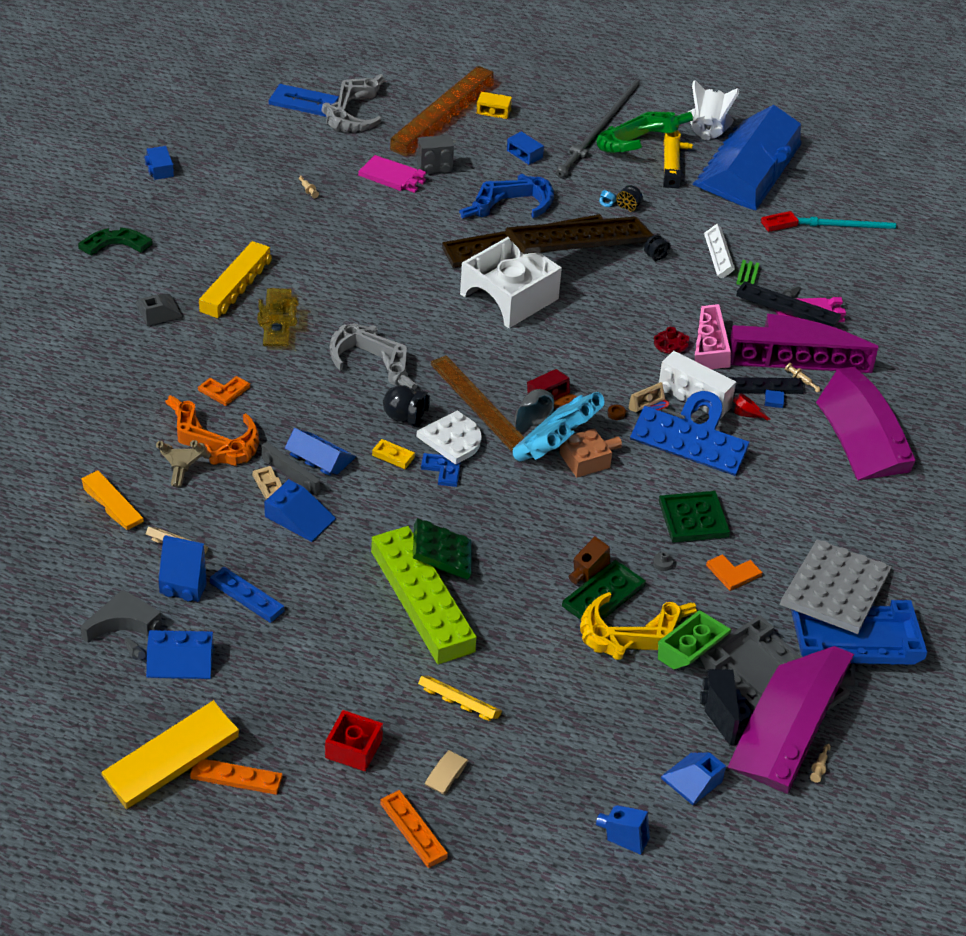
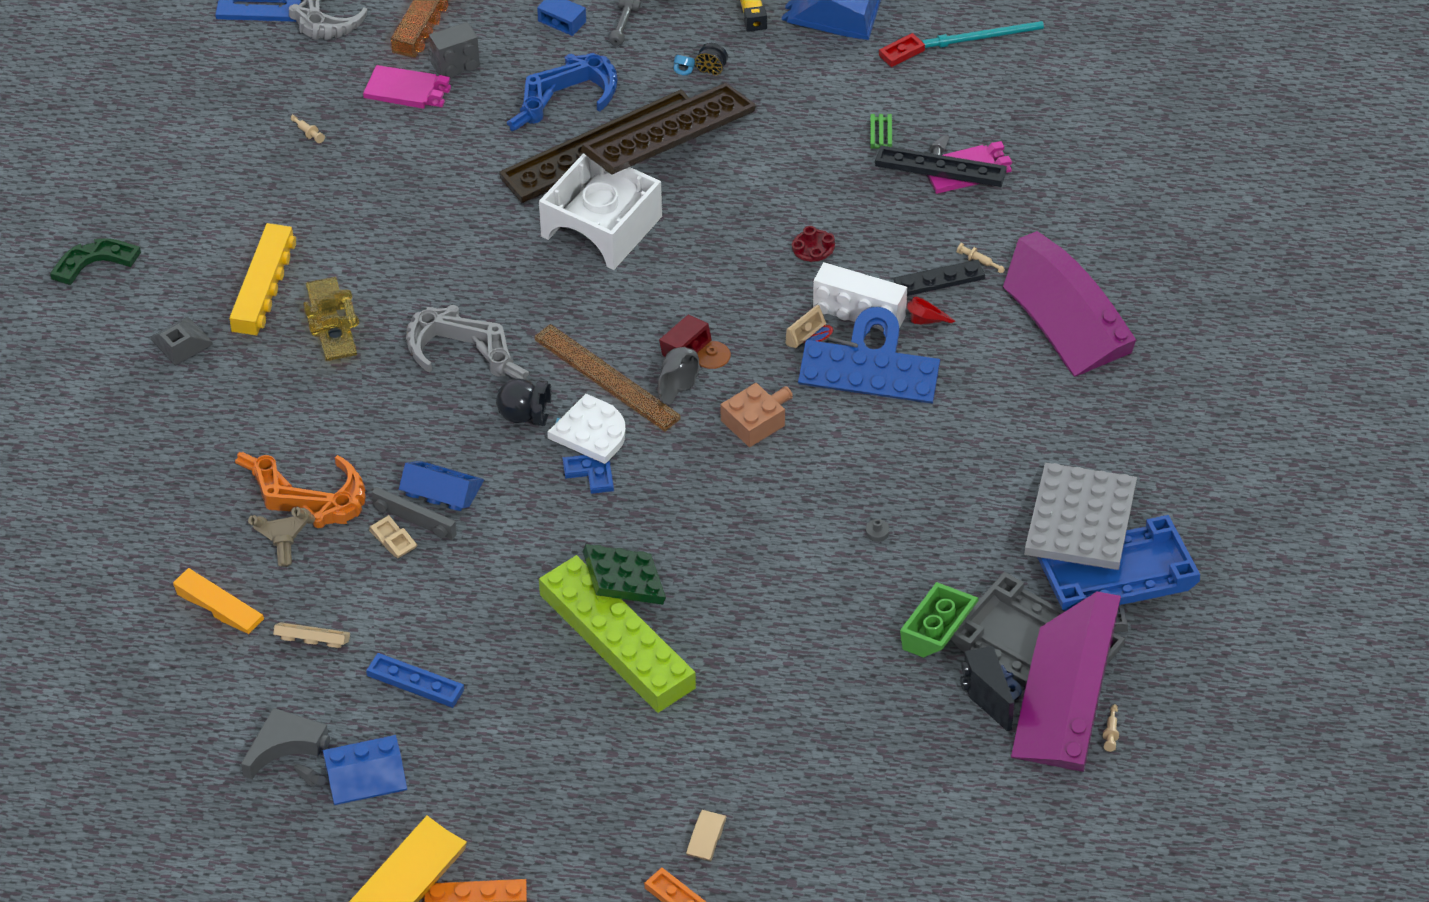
camera: 10 degrees left, 5 degrees up
(159, 163) = (110, 136): blue brick -> none
(182, 569) = (335, 668): blue slope -> none
(224, 393) = (300, 433): orange tile -> none
(298, 511) = (440, 565): blue slope -> none
(353, 740) = (594, 823): red brick -> none
(393, 454) = (527, 466): yellow plate -> none
(452, 694) = (685, 745): yellow plate -> none
(558, 427) = (709, 395): medium azure connector -> none
(590, 560) = (797, 551): reddish brown torso -> none
(615, 579) = (821, 585): dark green plate -> none
(616, 412) = (773, 353): reddish brown tile -> none
(618, 639) = (852, 638): yellow piece -> none
(626, 827) = (920, 851): blue torso -> none
(658, 248) = (764, 122): black wheel -> none
(694, 516) = (898, 466): dark green plate -> none
(695, 776) = (979, 775): blue slope -> none
(712, 340) = (863, 236): bright pink wedge -> none
(719, 251) = (839, 108): white plate -> none
(733, 576) = (961, 529): orange tile -> none
(774, 398) = (953, 293): blue tile -> none
(802, 344) = (969, 217): magenta slope -> none

